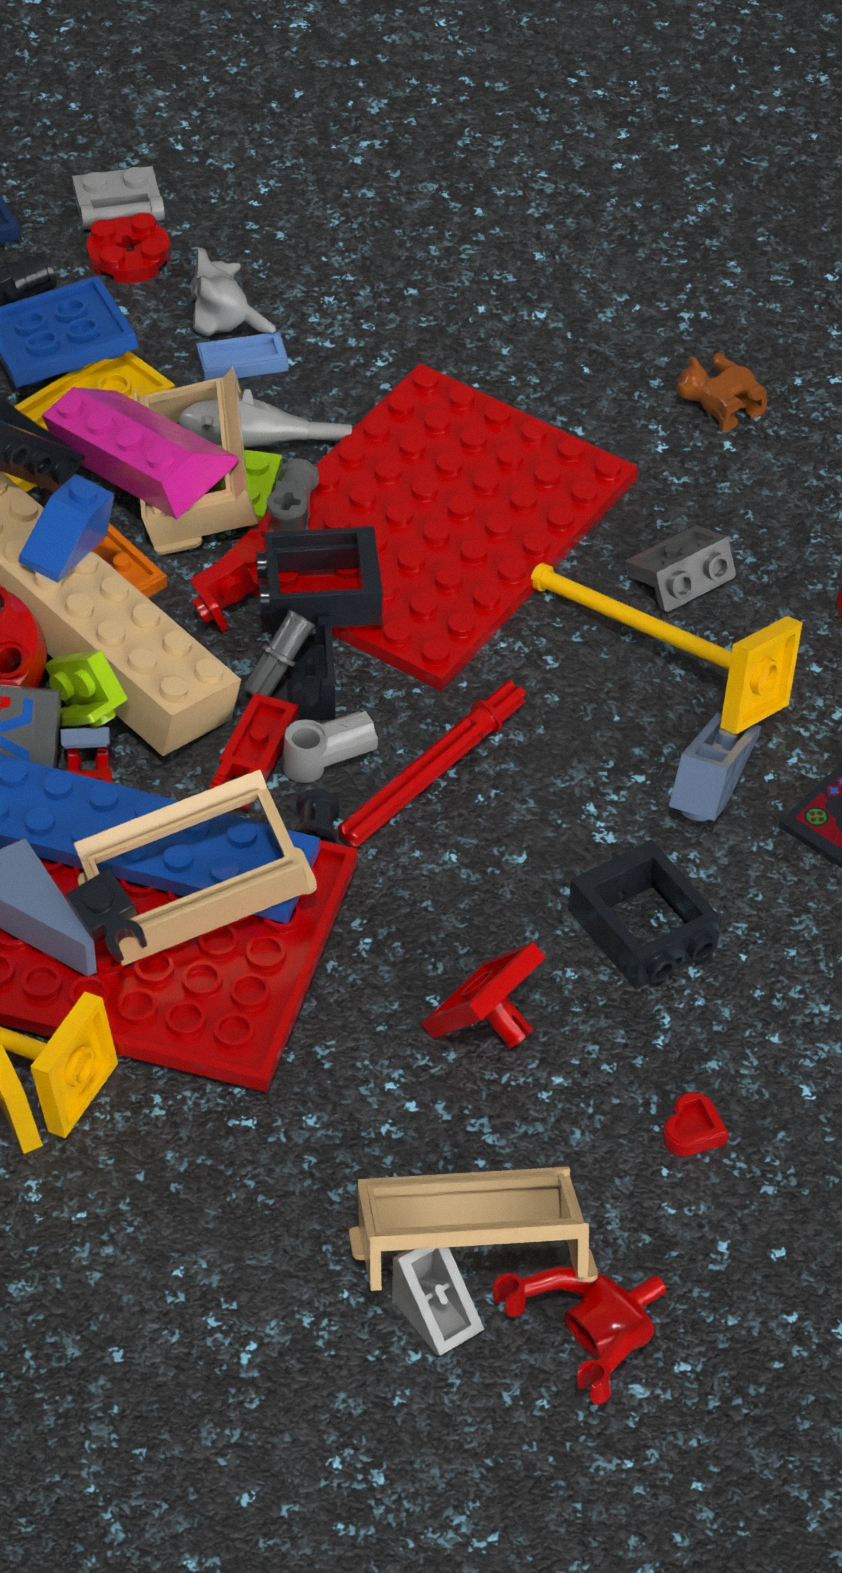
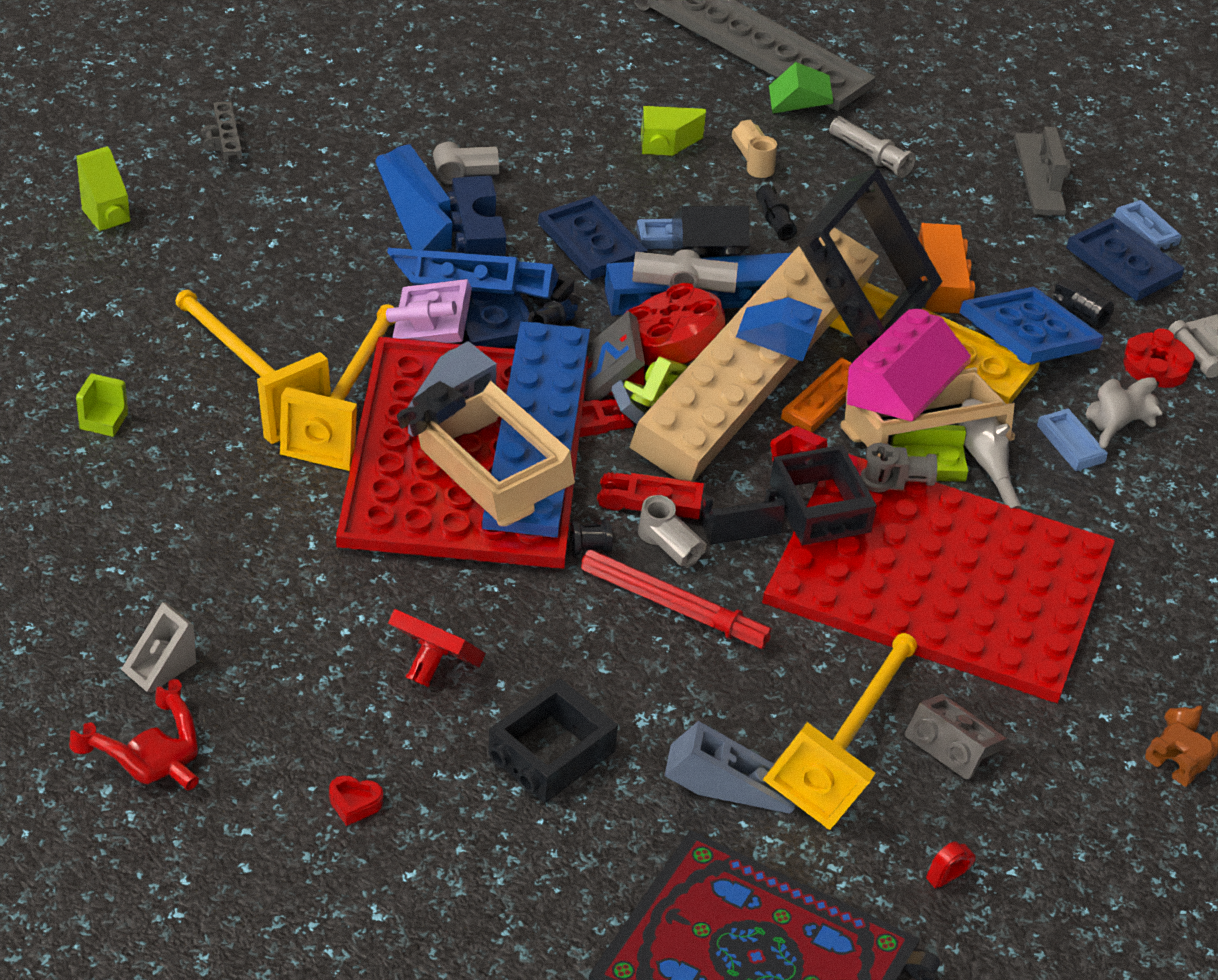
camera: 75 degrees right, 5 degrees down
(279, 654) = (742, 486): dark grey axle -> none
(469, 1212) = (208, 709): tan piece -> none

